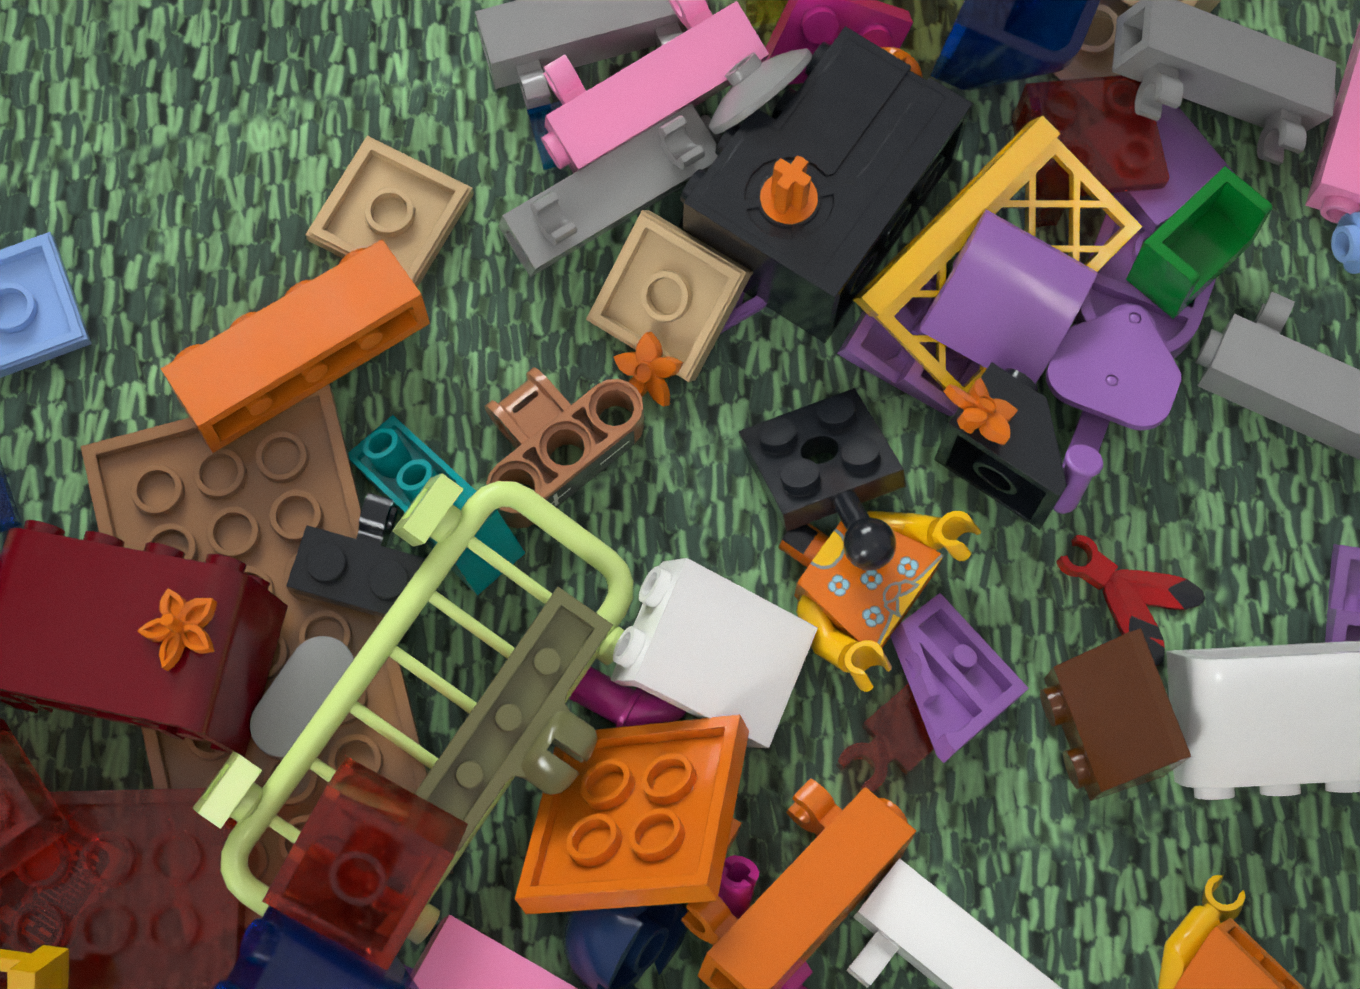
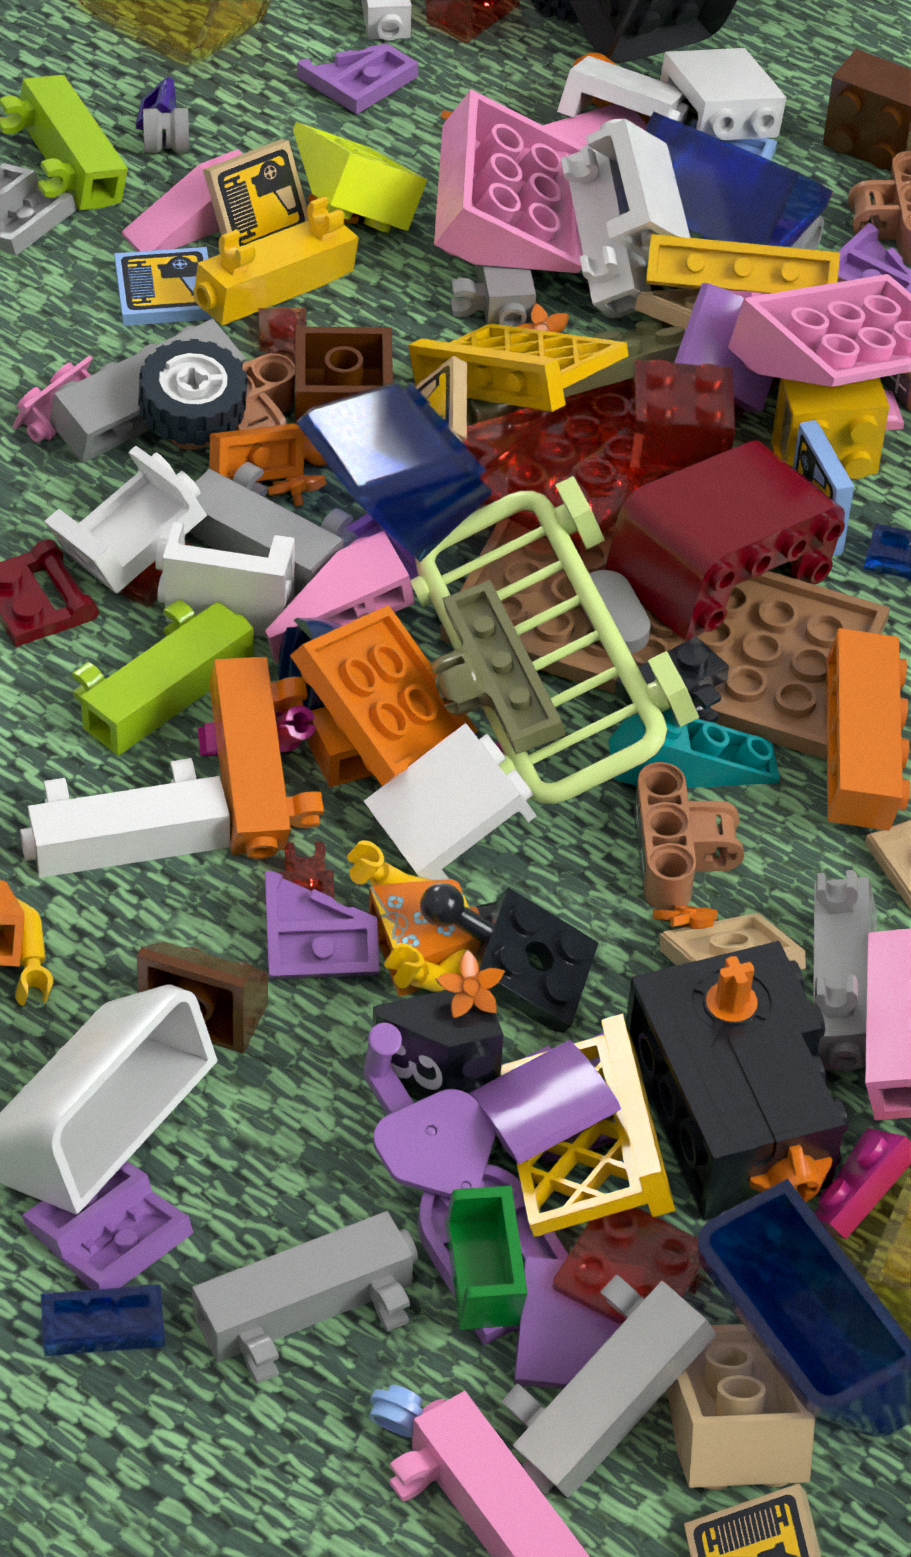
camera: 125 degrees right, 25 degrees down
(180, 627) = (696, 516): orange plant -> none
(366, 863) = (473, 534): clear red brick -> none
(755, 85) = (843, 1054): light grey dish -> none
(1131, 590) = (277, 1086): red piece -> none

